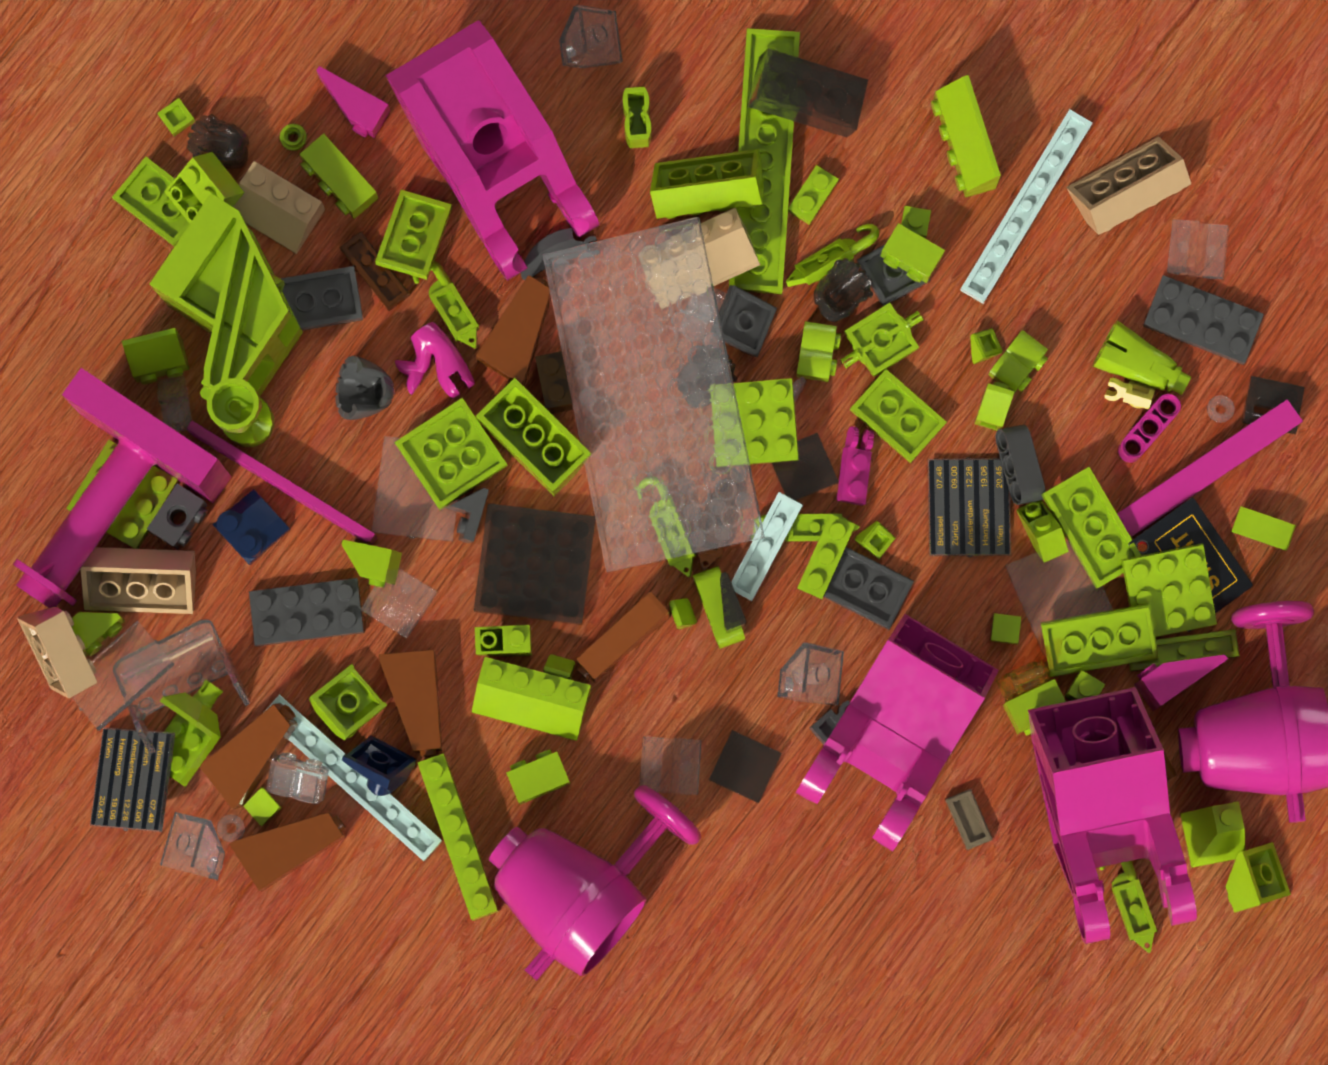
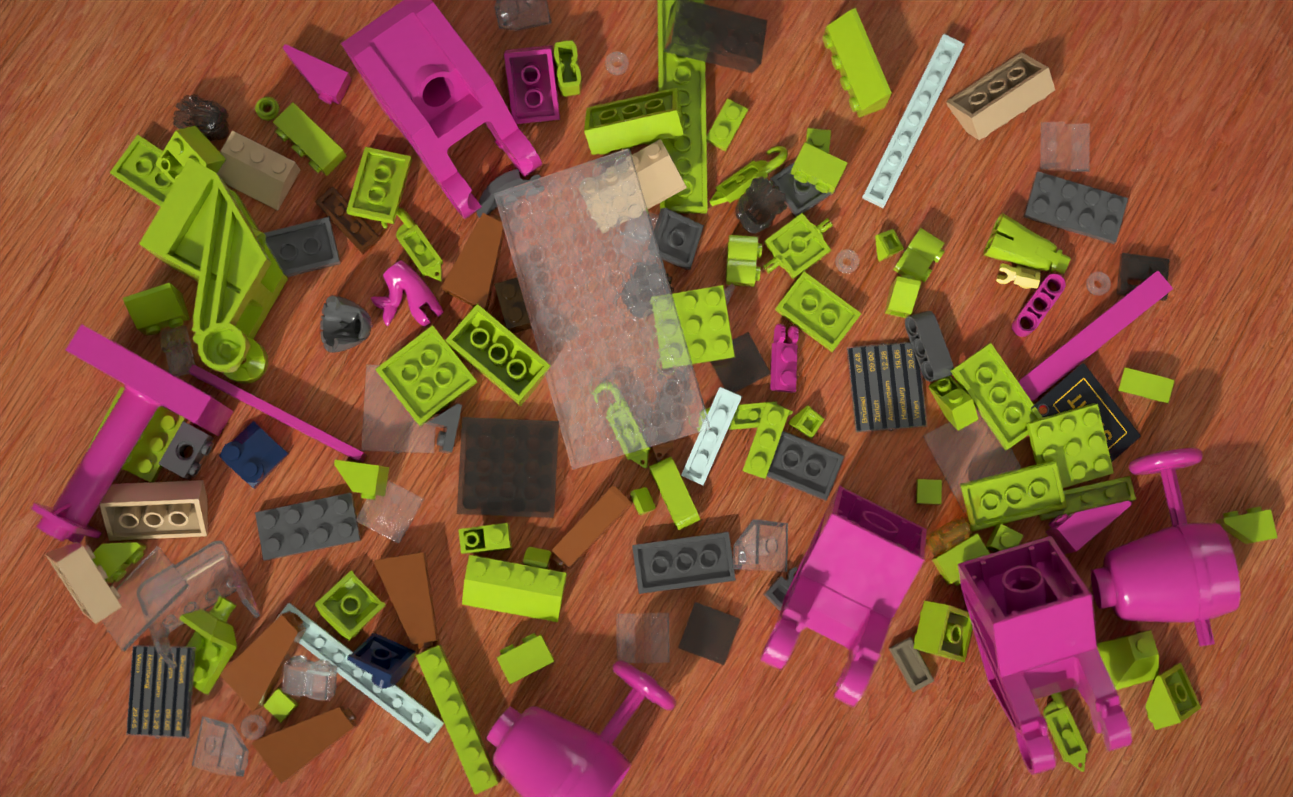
camera: 10 degrees left, 0 degrees up
(176, 117) = (162, 98): lime plate -> none
(595, 132) = (532, 84): none -> dark pink slope
(693, 107) = (617, 56): none -> clear plate
(722, 685) = (683, 563): none -> dark grey plate
(732, 611) = (687, 496): clear smoke slope -> none
(936, 353) = (850, 255): none -> clear plate
(1008, 785) = (943, 631): none -> lime slope

